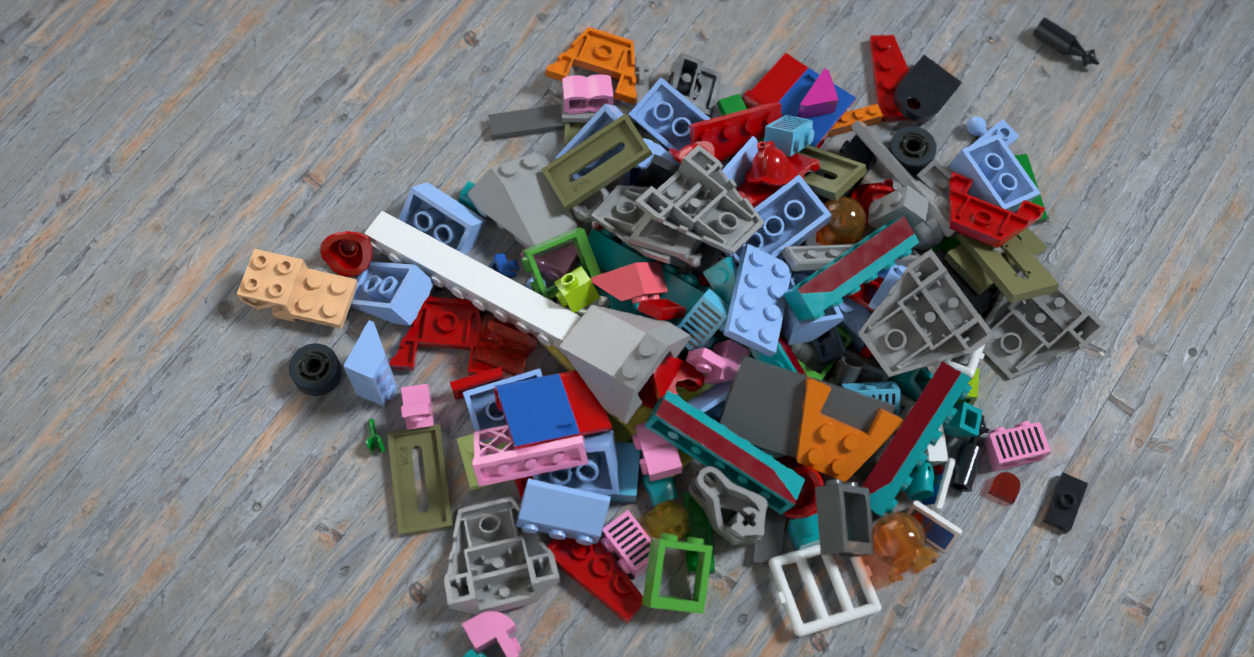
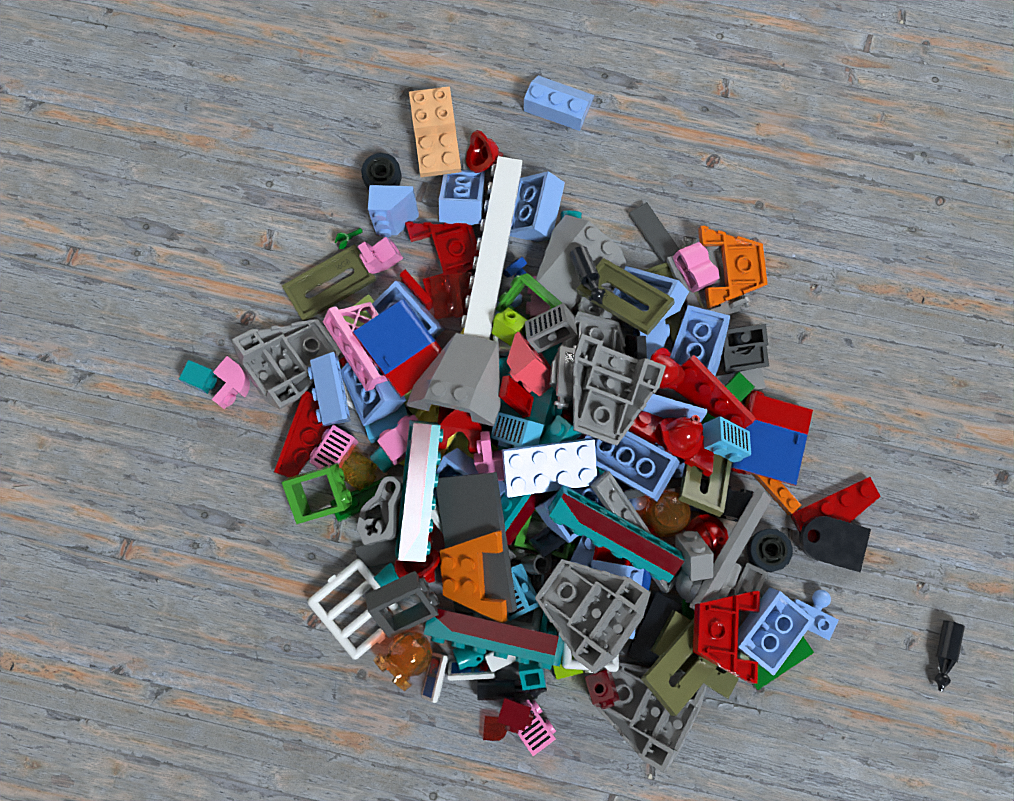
camera: 70 degrees right, 10 degrees up
(327, 154) = (557, 102): none -> light blue slope
(554, 186) = (587, 272): none -> black wheel
(602, 242) = (550, 328): none -> light grey brick
(820, 98) = (776, 452): dark pink slope -> none
(1002, 358) = (602, 689): none -> dark red brick
(1004, 449) = (515, 715): none -> dark red brick
(1065, 502) = (500, 783): black plate -> none

